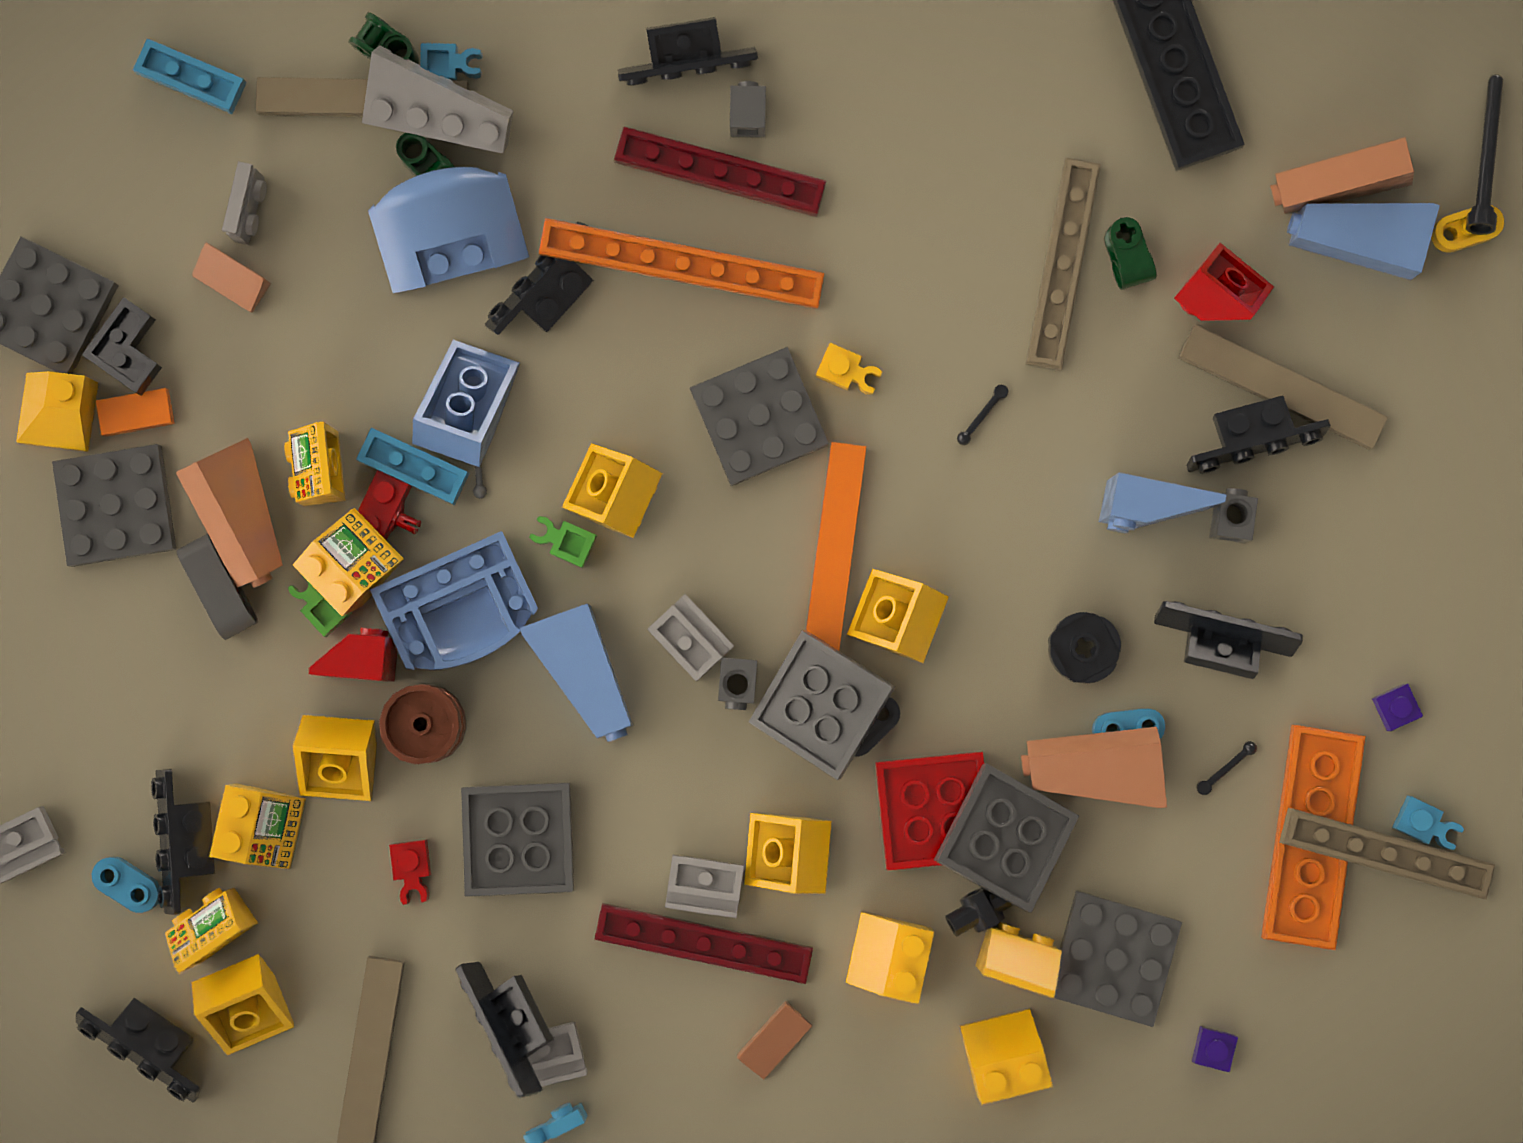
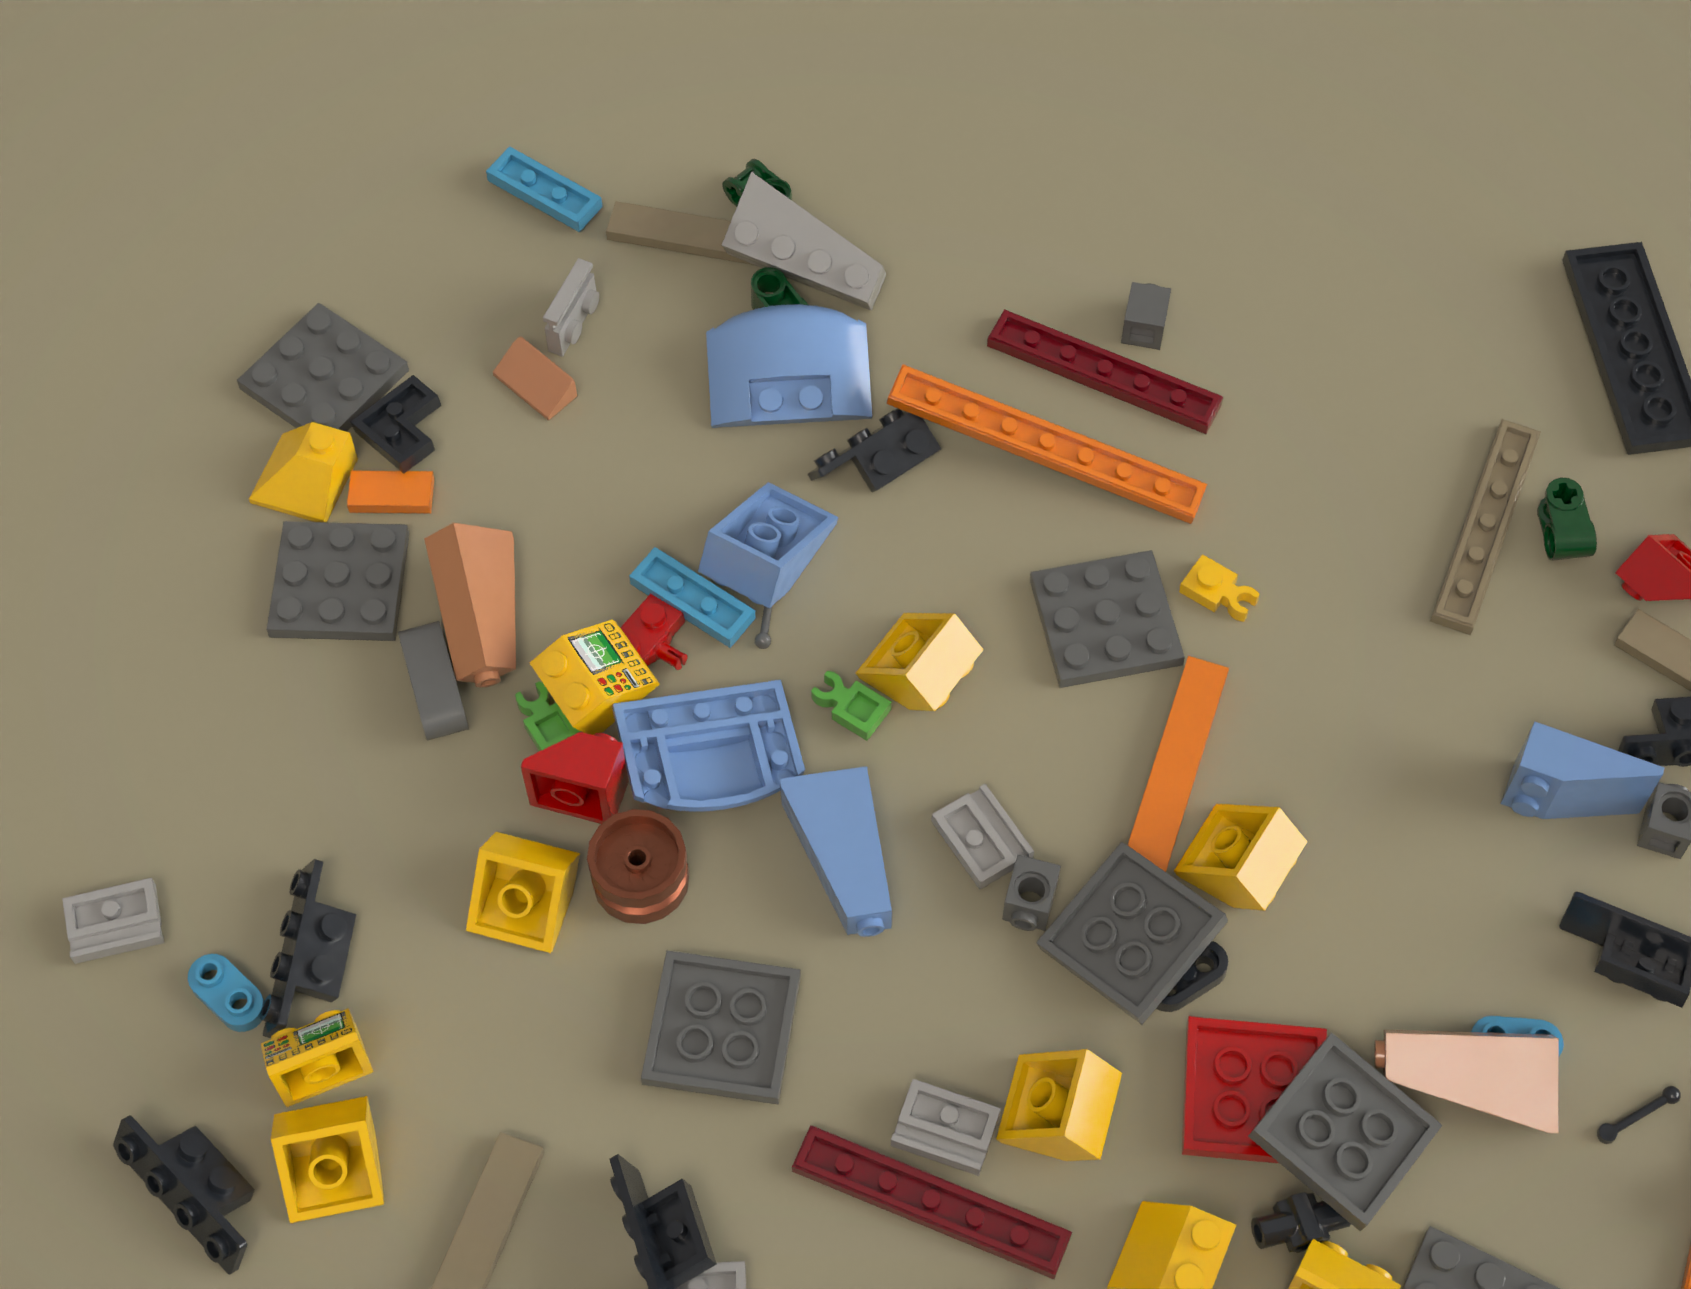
camera: 10 degrees right, 25 degrees down
(257, 826) = (405, 950): yellow slope -> none
(315, 464) = (581, 570): yellow slope -> none
(411, 862) = (580, 1035): red plate -> none
(446, 62) = (828, 214): dark azure plate -> none
(685, 48) = (1086, 245): black bracket -> none
(1000, 392) = (1396, 644): black hinge -> none
(1090, 628) = (1457, 957): black plate -> none

